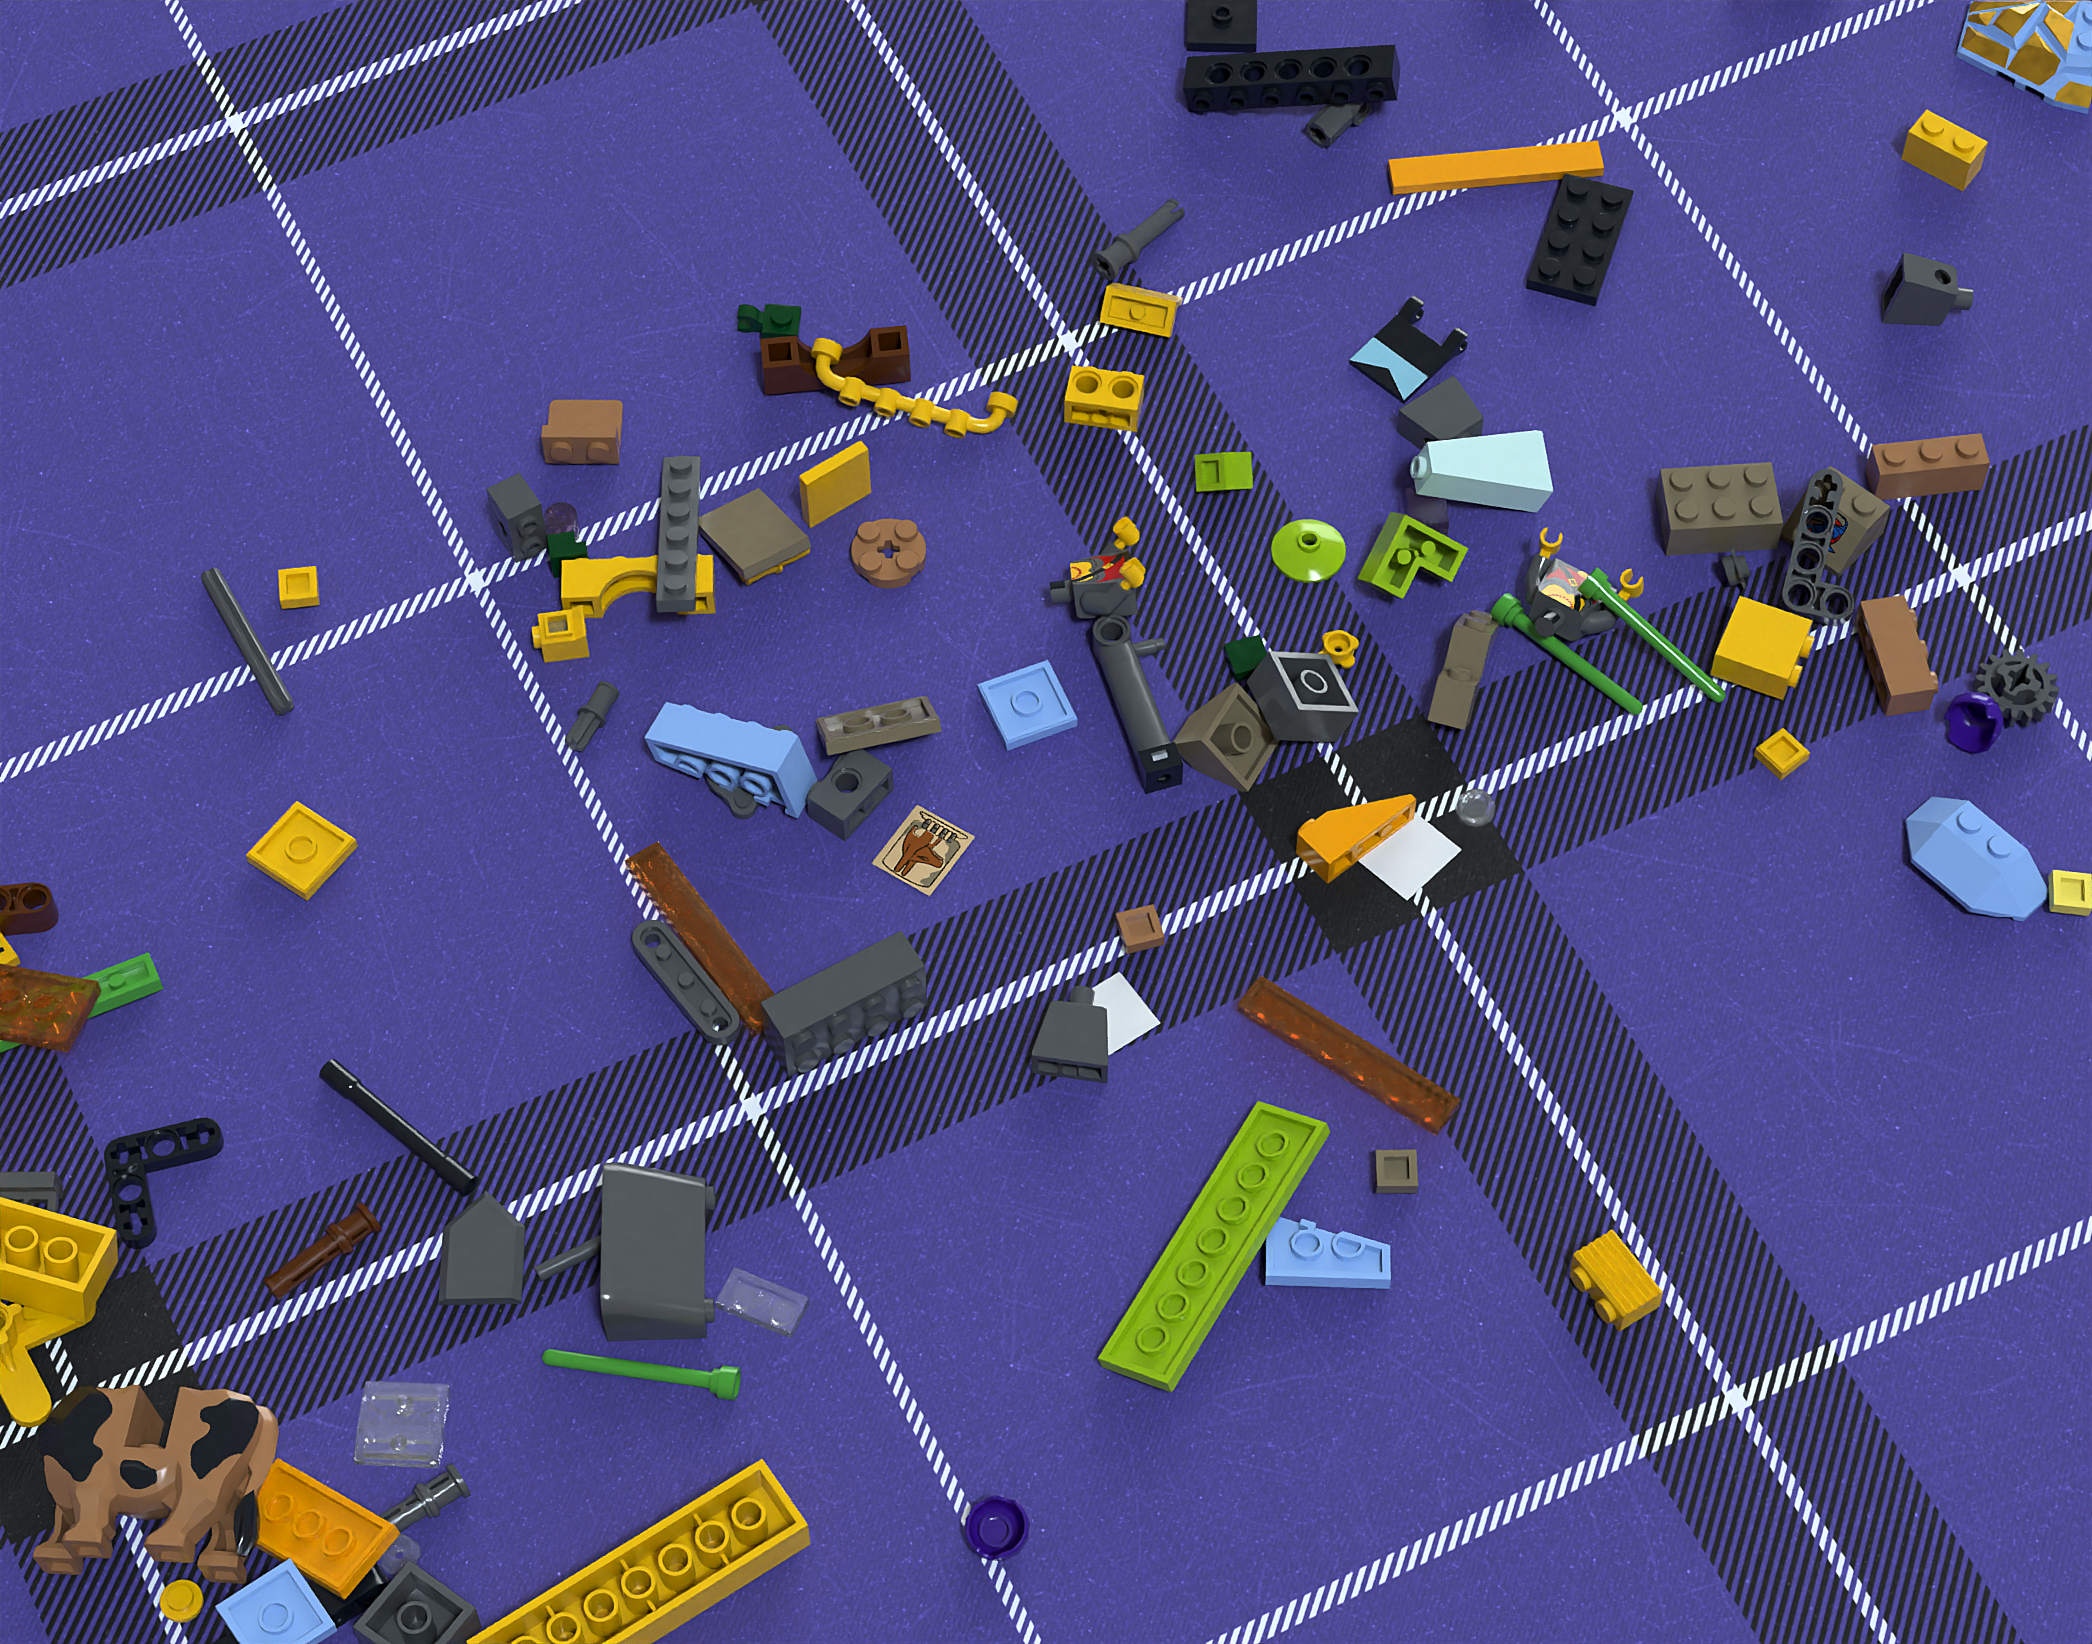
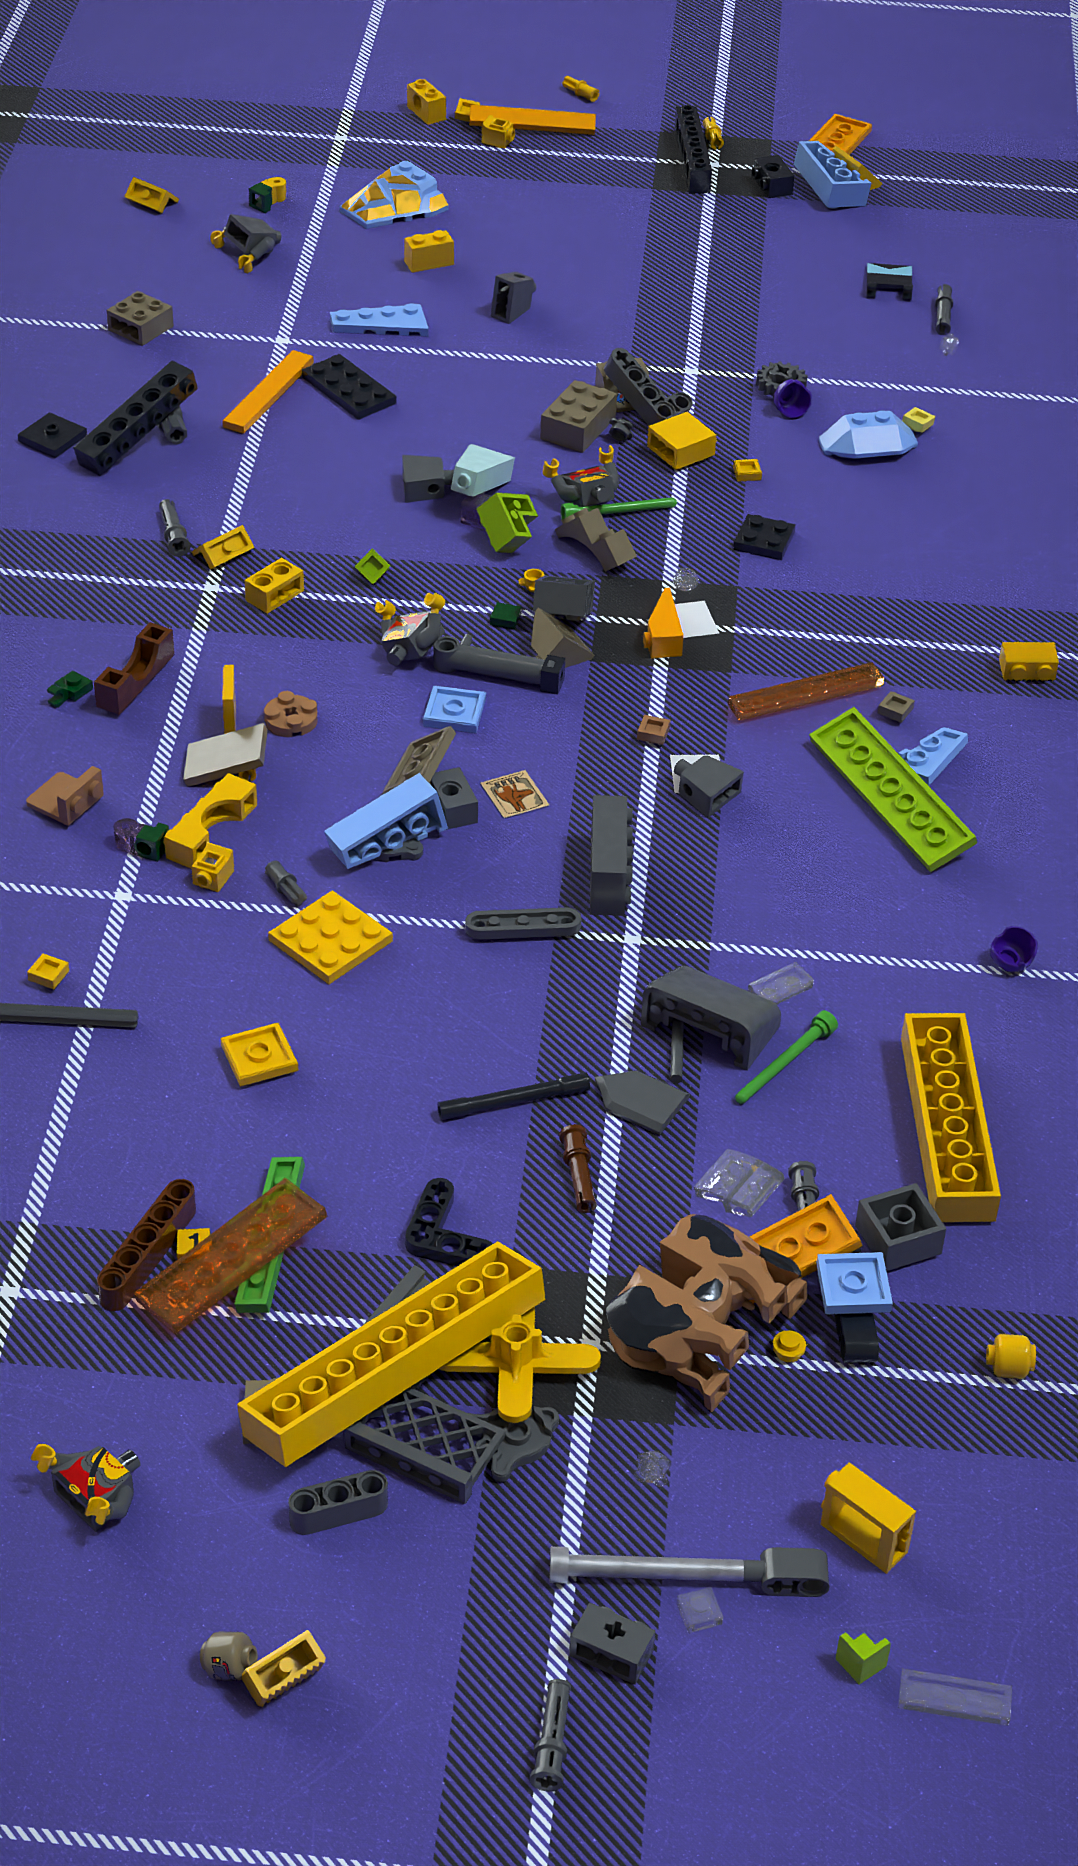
camera: 60 degrees left, 15 degrees down
(517, 517) = (111, 842): dark grey brick -> none
(539, 809) = (330, 937): none -> yellow plate
(679, 534) = (197, 779): dark grey plate -> none
(701, 933) = (467, 900): clear orange plate -> none
(921, 410) = (188, 662): yellow bar -> none
(1307, 562) = (453, 566): lime dish -> none
(1404, 357) = (359, 476): black flag -> none
(1598, 588) = (600, 461): bright green piece -> none
(1648, 847) = (764, 536): none -> black plate
(1765, 199) = (379, 320): none -> light blue wing
(1896, 655) = (726, 405): medium nougat brick -> none
(1927, 467) = (625, 334): medium nougat brick -> none

